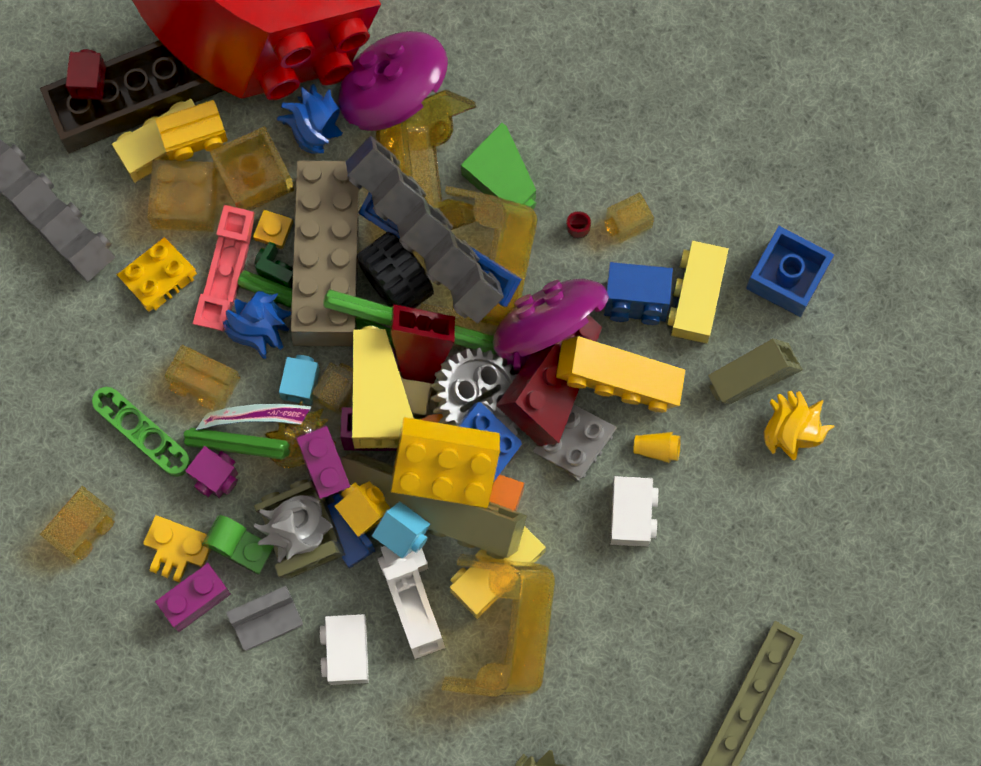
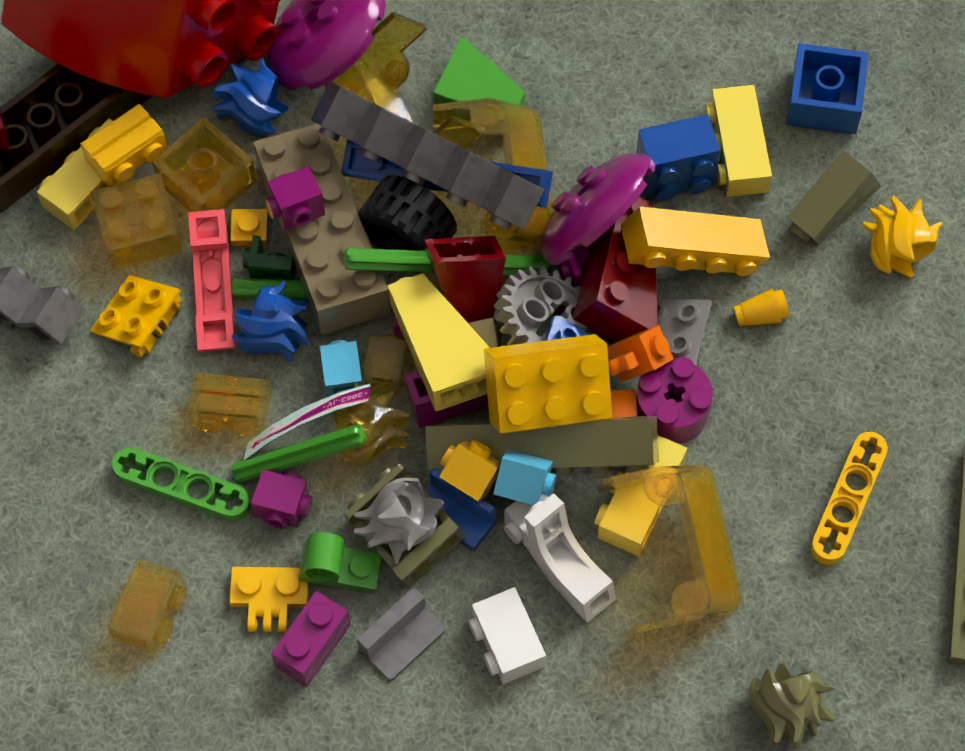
camera: 20 degrees left, 10 degrees down
(306, 229) = (295, 198): none -> magenta brick
(322, 461) = (407, 432): magenta brick -> none
(535, 455) = (639, 354): none -> orange brick
(568, 493) = (672, 383): none -> magenta brick
(576, 222) = (582, 116): dark red hinge -> none
(628, 218) = (634, 91): clear yellow brick -> none
(633, 511) = (764, 383): white brick -> none
(666, 634) = (849, 498): none -> yellow beam

